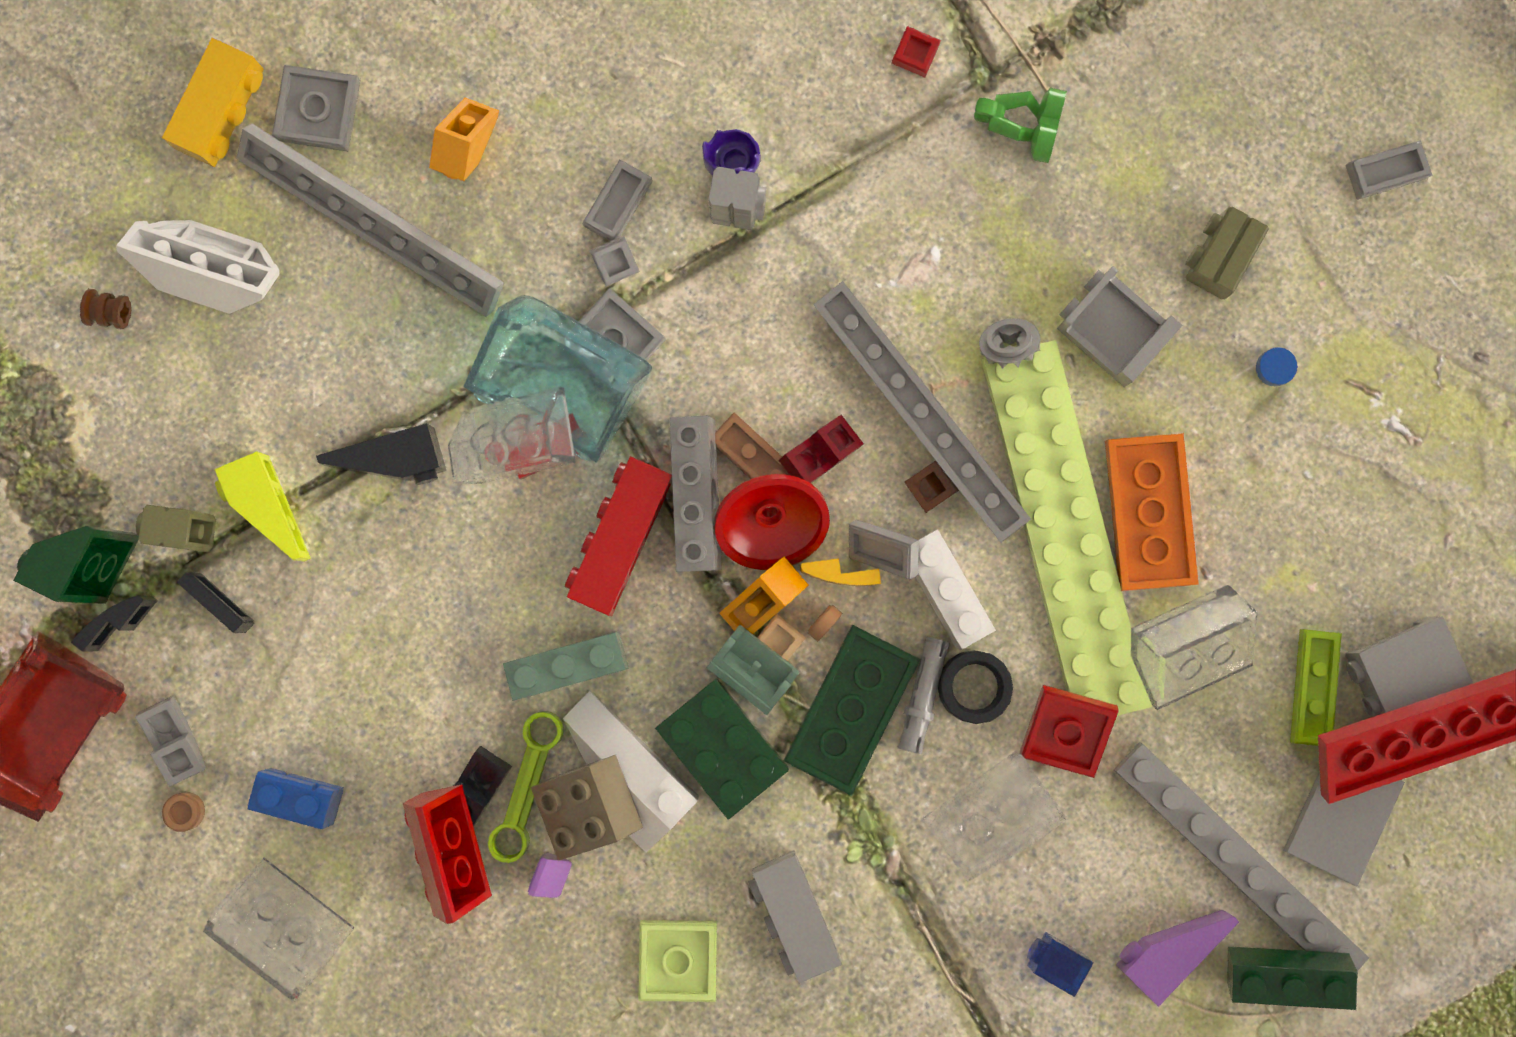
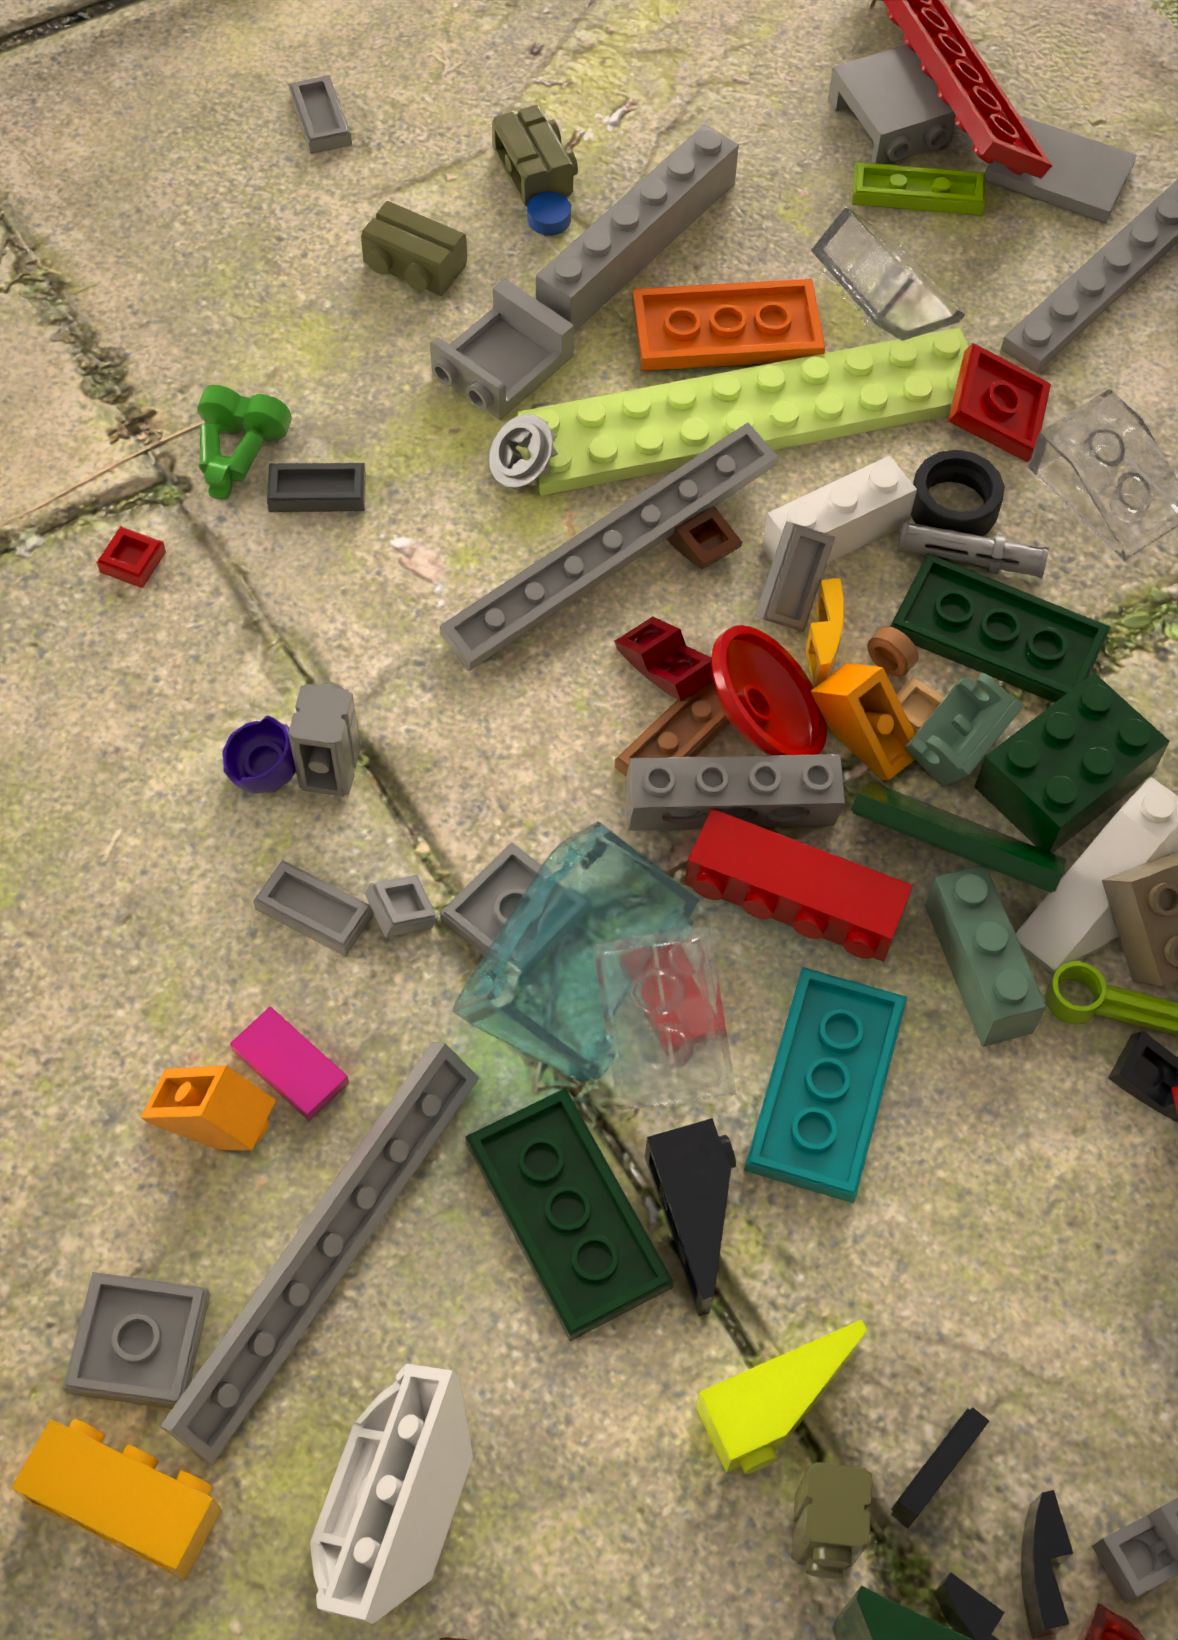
camera: 90 degrees left, 25 degrees down
(161, 662) = (1044, 1546): none -> black slope
(392, 375) = (568, 1214): none -> dark green tile
(481, 551) = (826, 1085): none -> teal tile
(500, 191) = (289, 1063): none -> dark pink tile
(655, 656) = (959, 836): none -> dark green tile
(983, 186) = (316, 487): none -> dark grey tile
(1253, 440) = (638, 226): none -> light grey brick
(1337, 351) = (533, 153): none -> olive brick

